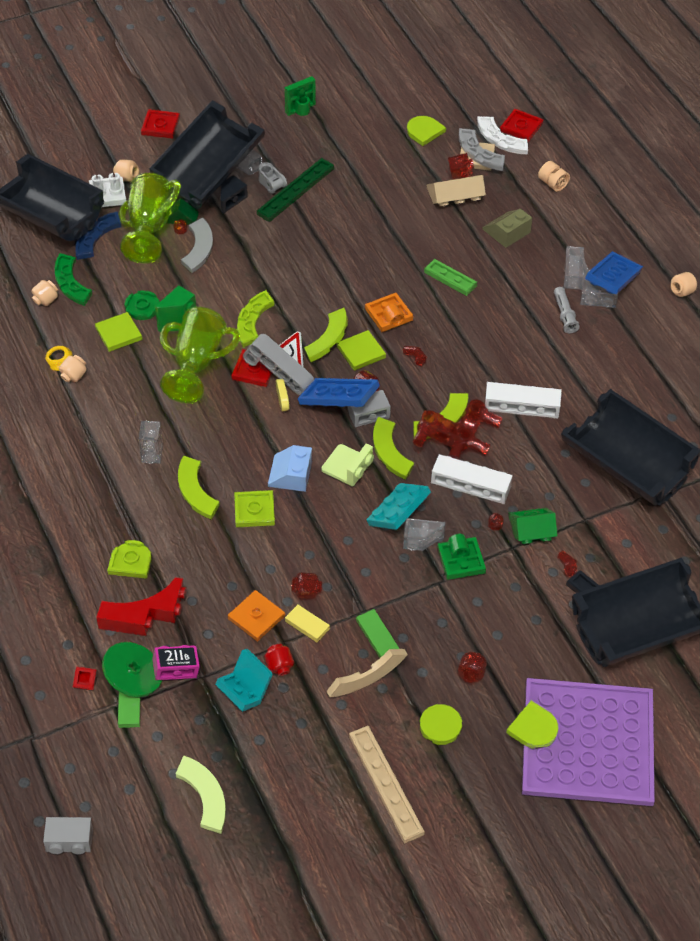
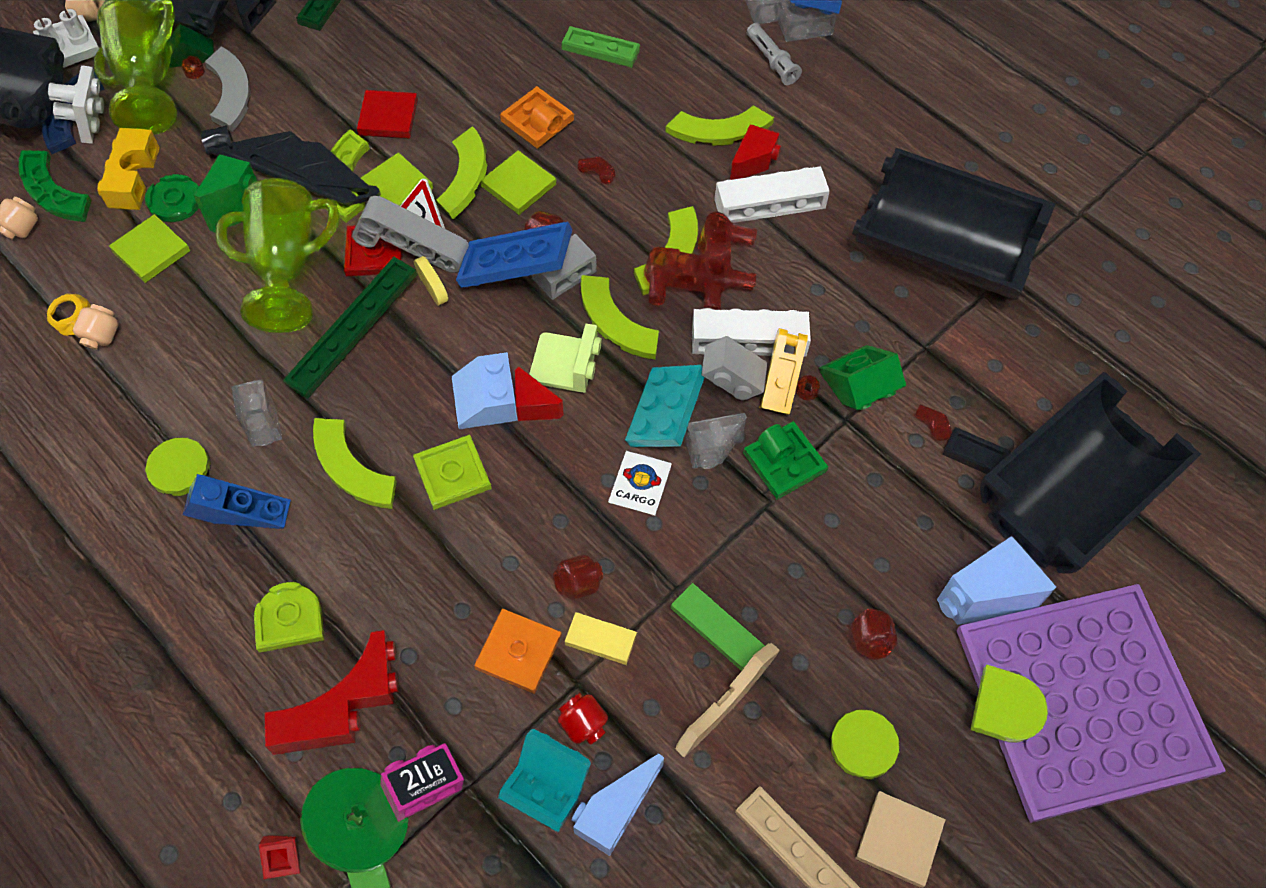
camera: 20 degrees left, 10 degrees up
(95, 461) = (175, 465): none -> lime tile
(106, 235) = (85, 102): none -> white plate
(114, 289) = (121, 184): none -> yellow arch
(120, 490) = (234, 504): none -> blue slope
(222, 299) = (295, 160): none -> black wing
(223, 409) = (350, 327): none -> dark green tile
(280, 708) = (612, 808): none -> light blue slope
(281, 328) = (395, 178): none -> lime tile
(293, 286) = (387, 114): none -> red tile
(319, 481) = (534, 399): none -> red slope
(366, 547) = (640, 483): none -> white sticker
(439, 778) = (900, 839): none -> tan tile
(449, 495) = (734, 368): none -> light grey brick
(480, 506) = (783, 372): none -> yellow plate
(507, 351) = (719, 130): none -> lime tile
(523, 370) = (755, 152): none -> red slope
(555, 659) = (995, 586): none -> light blue slope

